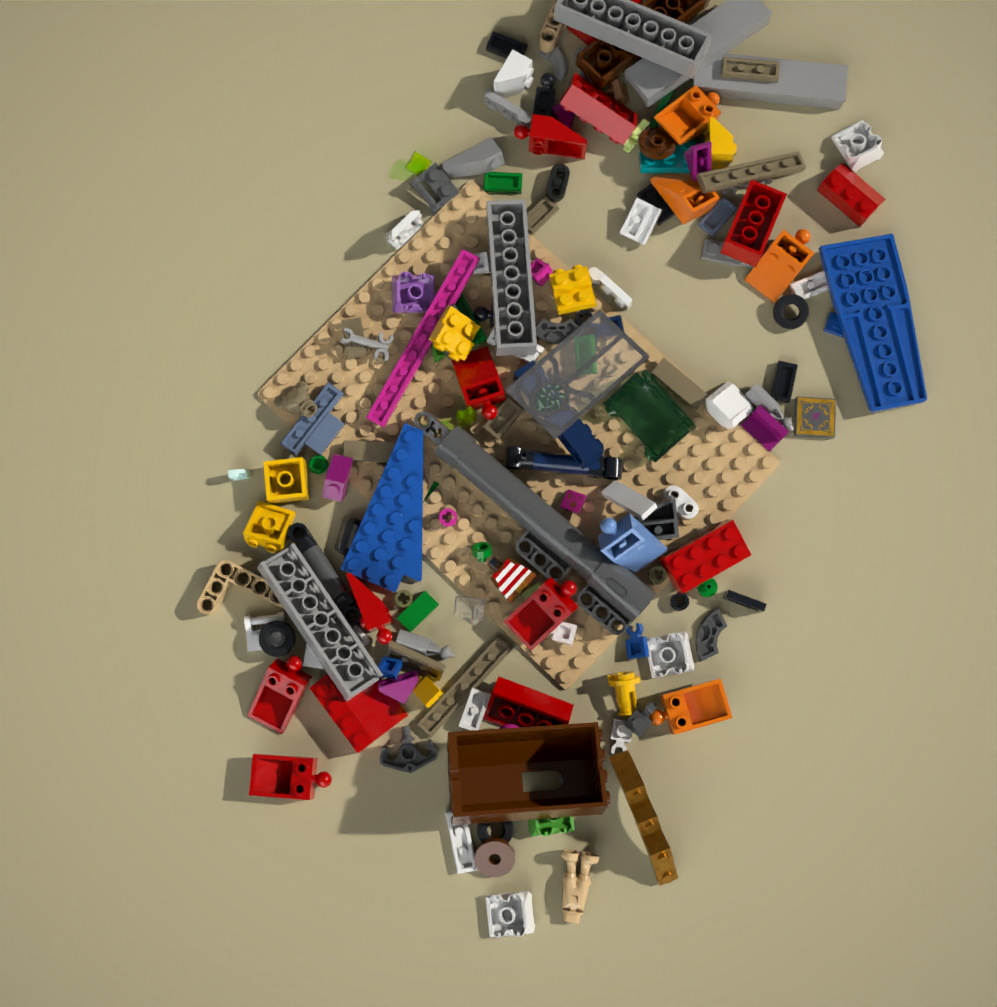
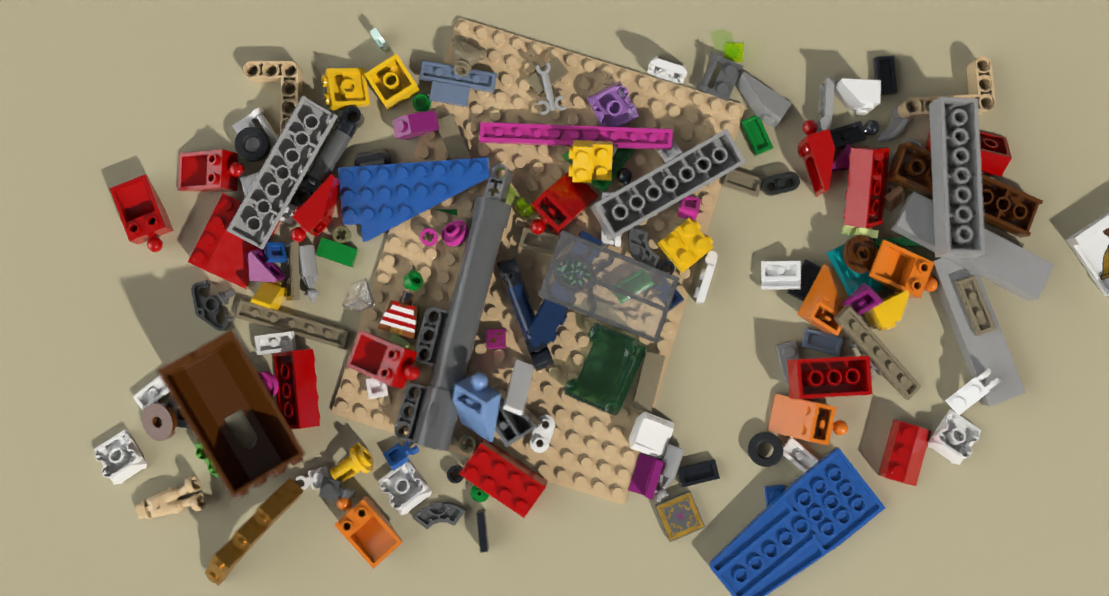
camera: 60 degrees right, 5 degrees up
(457, 490) = (455, 233): none -> dark pink plate
(825, 110) = (971, 392): none -> white hinge

